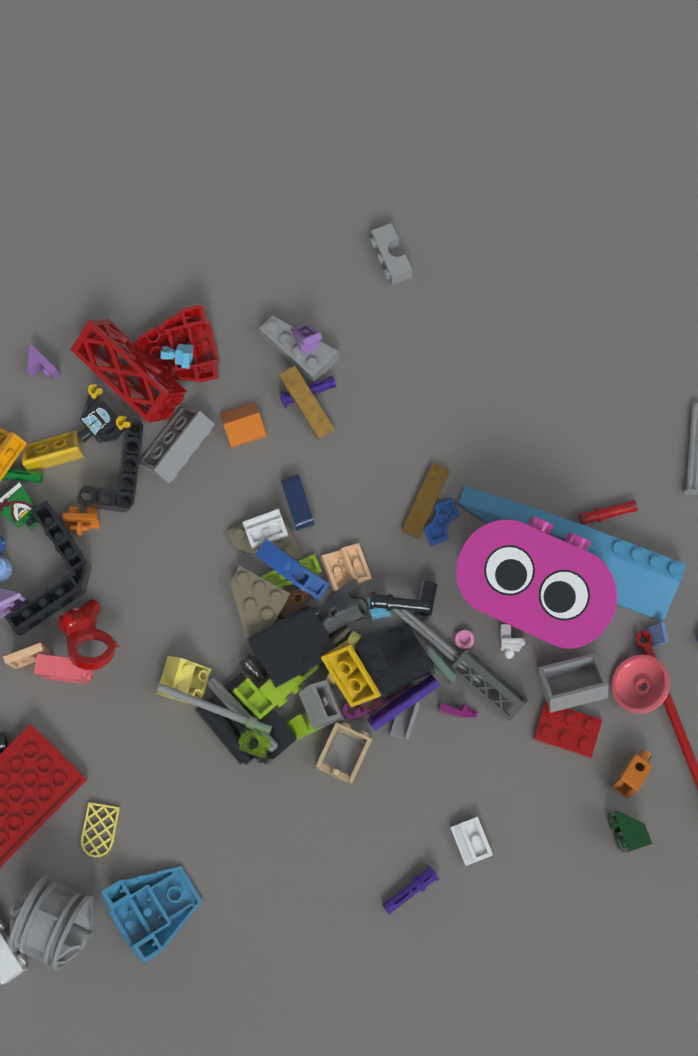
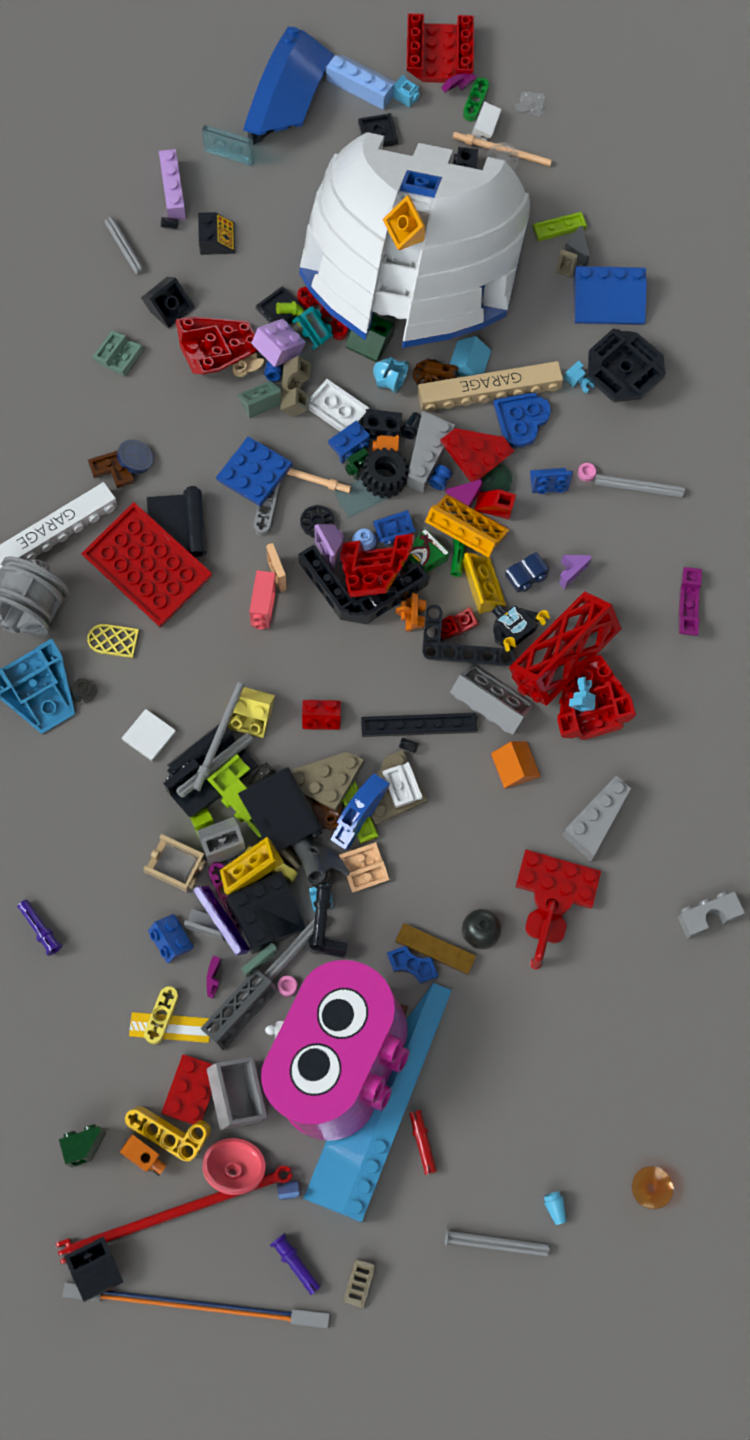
camera: 80 degrees right, 5 degrees down
(35, 552) = (373, 570): none -> red wedge
(42, 408) = (527, 572): none -> dark blue brick
(80, 626) = (302, 613): red animal -> none
(81, 259) = (689, 601): none -> magenta slope
(94, 473) = (458, 624): none -> red slope
(160, 853) = (83, 690): none -> clear smoke cone
(188, 610) = (321, 714): none -> red bracket
(200, 516) = (418, 724): none -> black tile
(206, 786) = (149, 735): none -> white tile
(219, 529) = (402, 743): none -> black piece
(263, 743) = (181, 780): clear neon green brick -> none
(297, 502) = (431, 818): dark blue beam -> none
(306, 338) = (605, 820): medium lavender slope -> none
(306, 402) = (537, 824): pearl gold tile -> none
(315, 388) = (548, 818): dark purple pin -> none
(360, 391) = (560, 885): none -> red plate
(406, 457) = (481, 929): none -> pearl dark grey cylinder
(419, 755) = (170, 938): none -> blue bracket
(471, 841) = (82, 988): white plate -> none
(493, 753) = (161, 1031): none -> light yellow beam
(506, 754) = (179, 1027): none -> yellow sticker
(608, 750) = (165, 1128): none -> yellow beam
(639, 306) = (660, 1180): none -> clear orange dish
(657, 397) = (555, 1205): none -> medium azure cone

